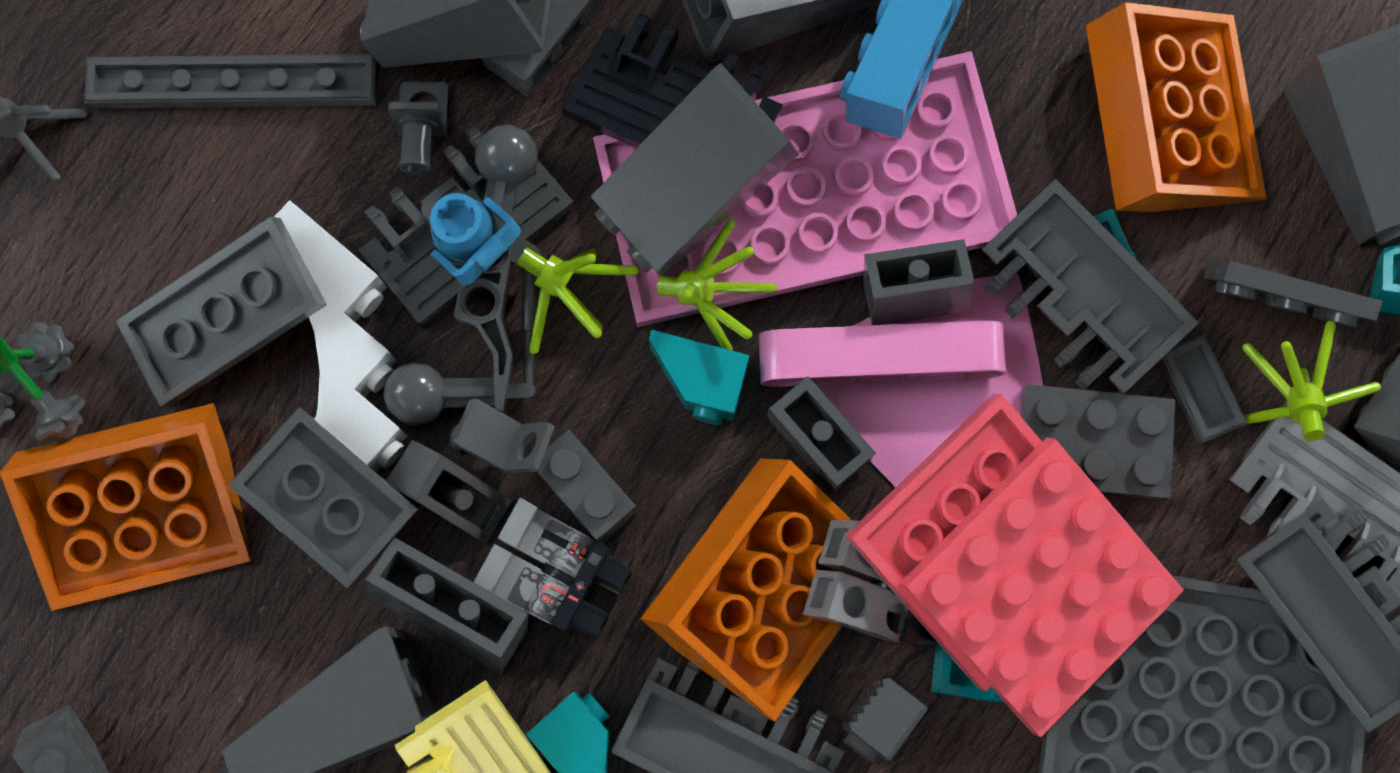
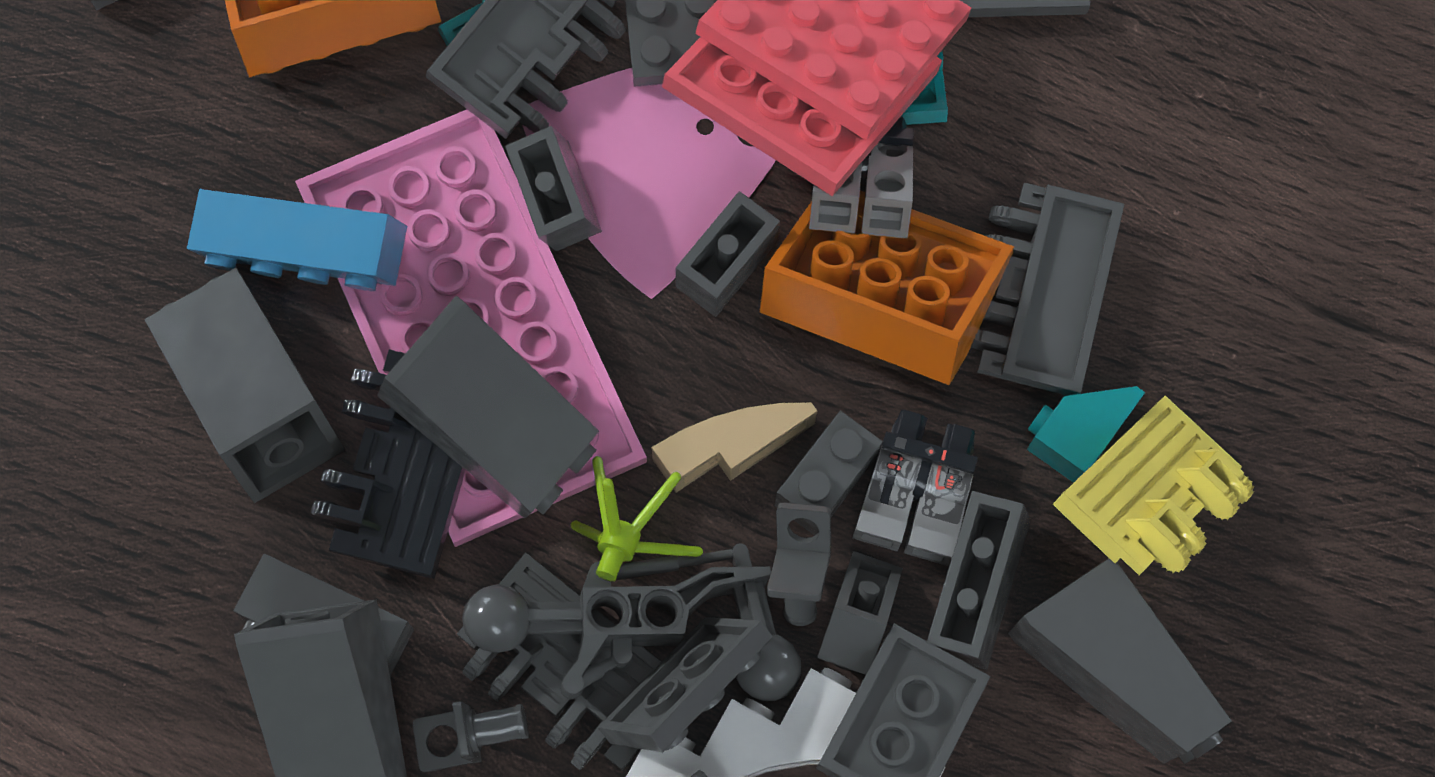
camera: 105 degrees left, 5 degrees down
(404, 306) = (686, 684): none -> dark grey plate
(469, 235) = (595, 632): dark azure piece -> none
(636, 403) = (731, 440): none -> tan slope
(698, 287) = (605, 396): lime plant -> none
(702, 375) = (689, 380): teal slope -> none
(882, 353) = (630, 217): bright pink beam -> none
(882, 720) = (990, 148): dark grey brick -> none

